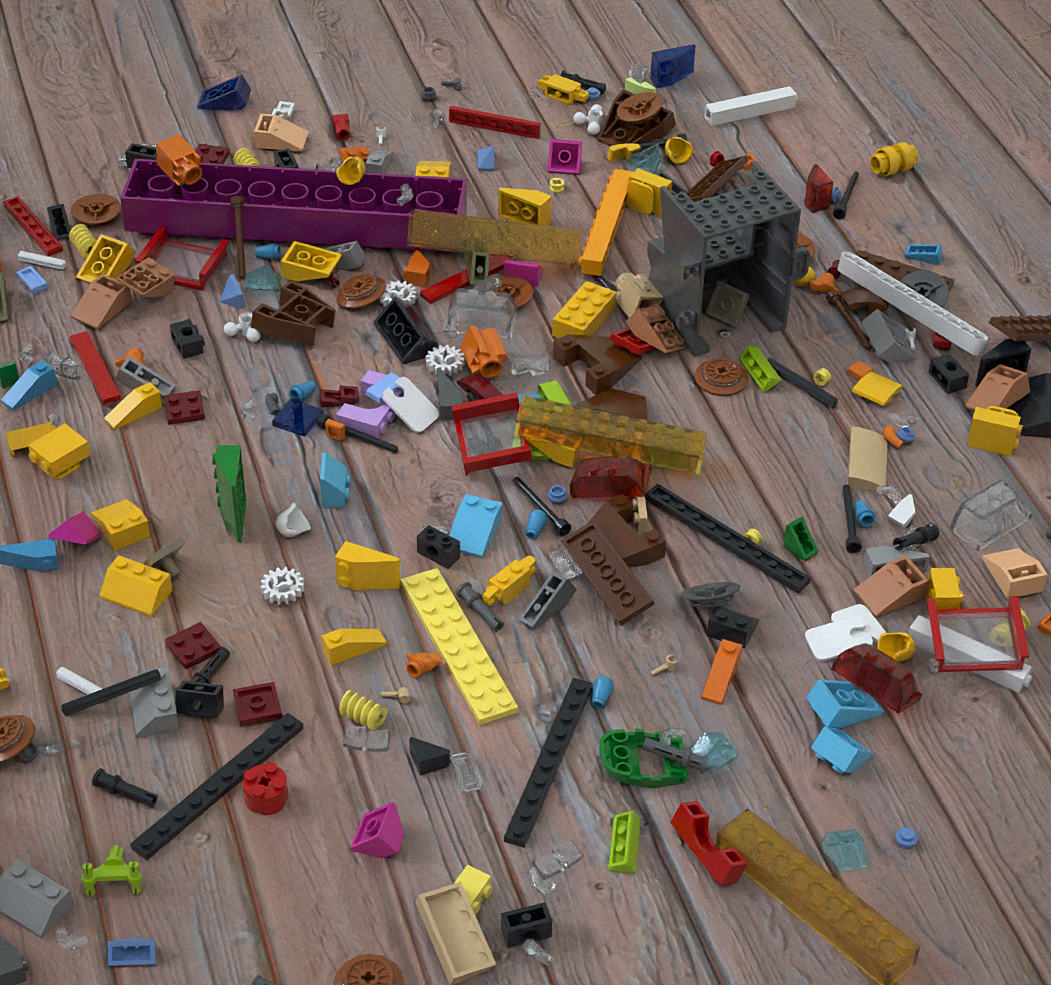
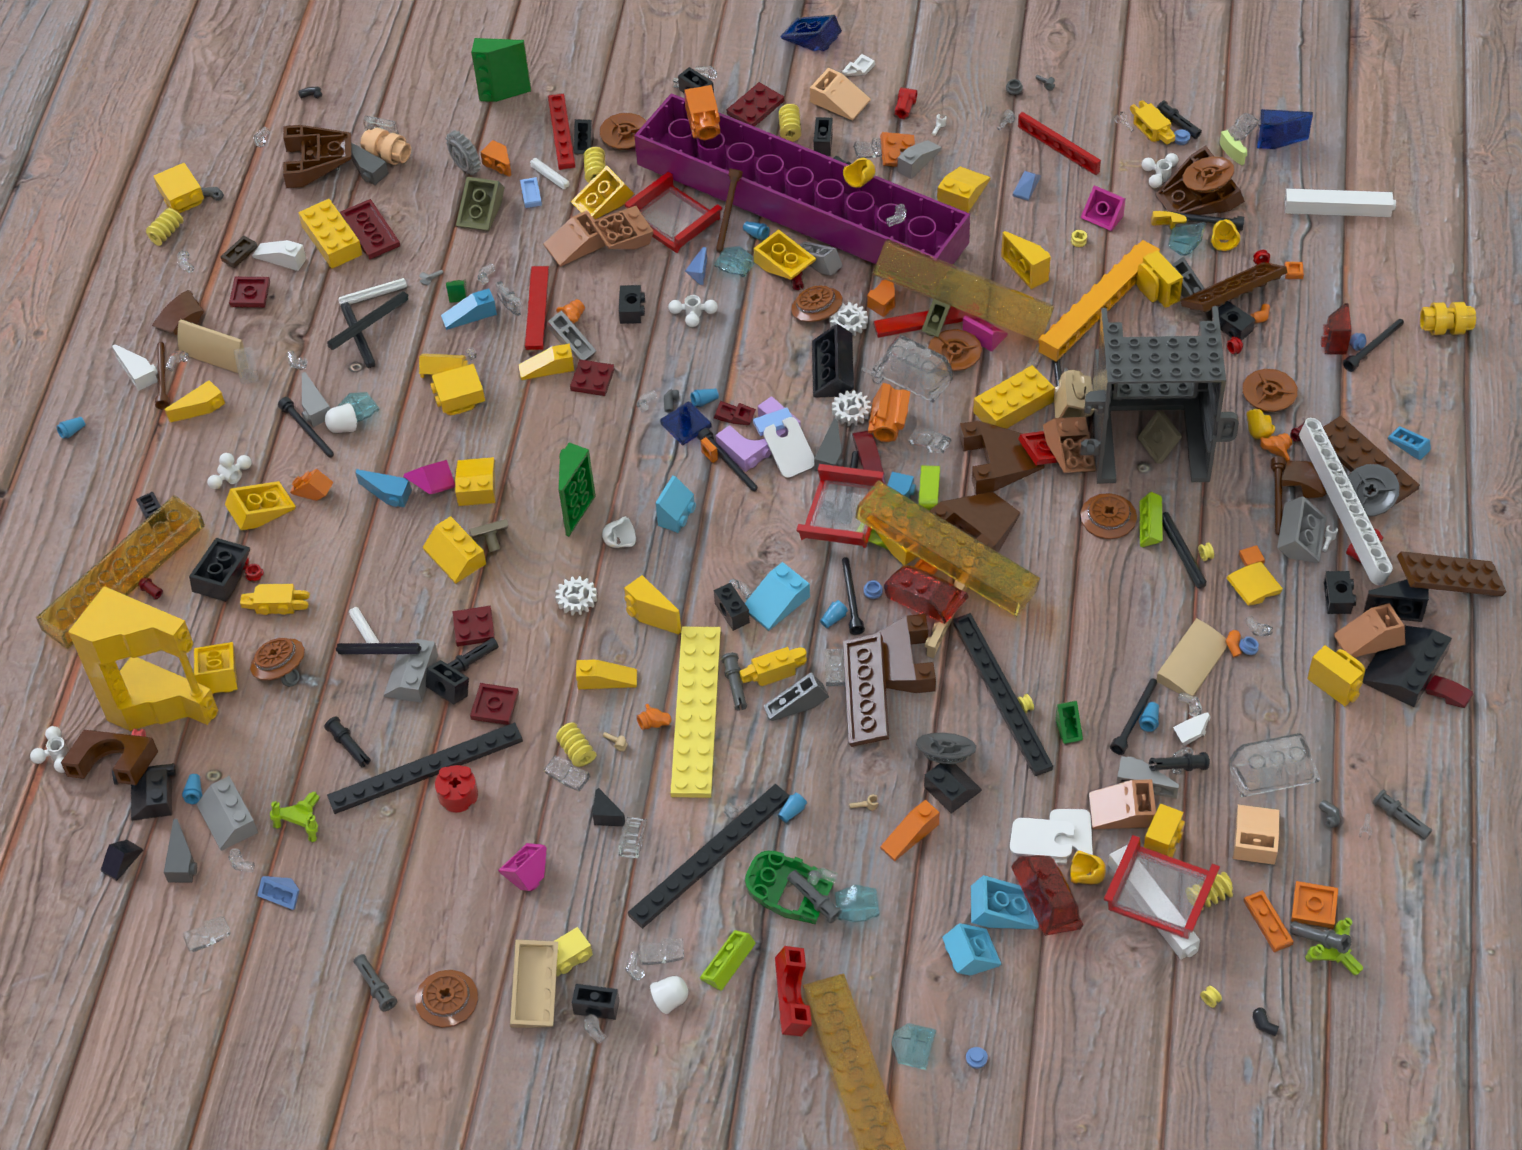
camera: 30 degrees right, 10 degrees up
(296, 317) = (736, 315): reddish brown wedge -> none
(491, 283) = (934, 339): clear slope -> none
(592, 890) = (669, 993): none -> white hair

